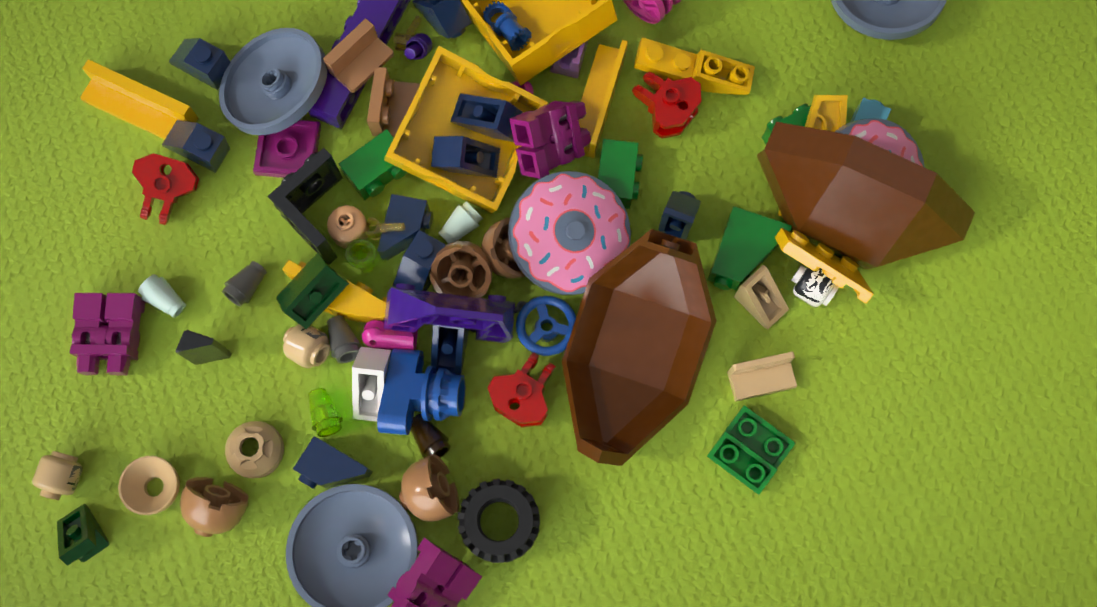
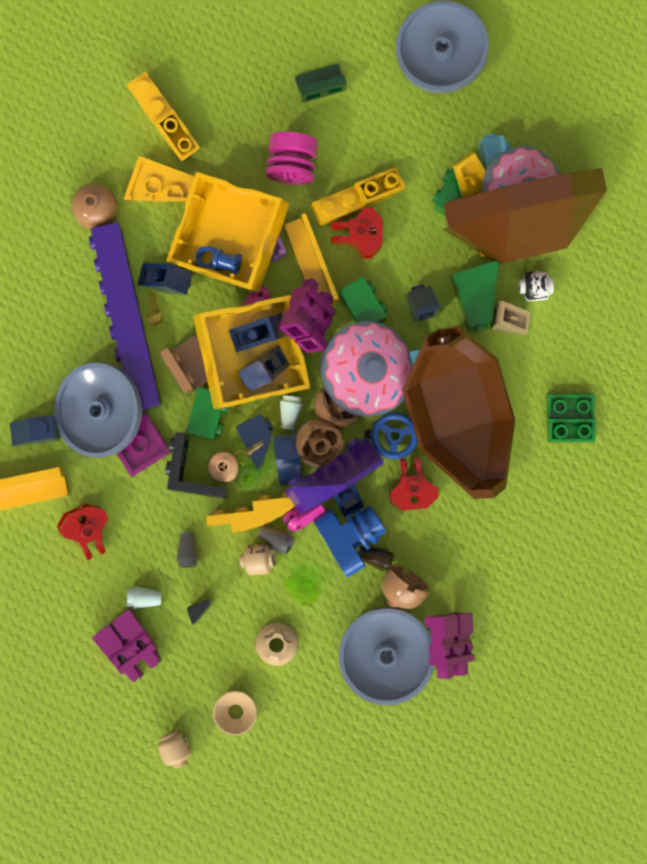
camera: 40 degrees left, 10 degrees up
(80, 536) = (217, 772): dark green slope -> none
(197, 144) = (80, 487): dark blue slope -> none
(211, 507) = (283, 695): medium nougat cylinder -> none
(311, 291) = (238, 525): dark green panel -> none
(328, 466) = (331, 619): dark blue slope -> none
(357, 56) = (144, 354): medium nougat panel -> none
(368, 382) = (316, 551): white slope -> none
(418, 46) = (169, 314): dark purple cylinder -> none
(471, 513) = (478, 579): black tyre -> none
(762, 376) = (546, 368): tan panel -> none
(839, 270) = (528, 269): yellow wing -> none

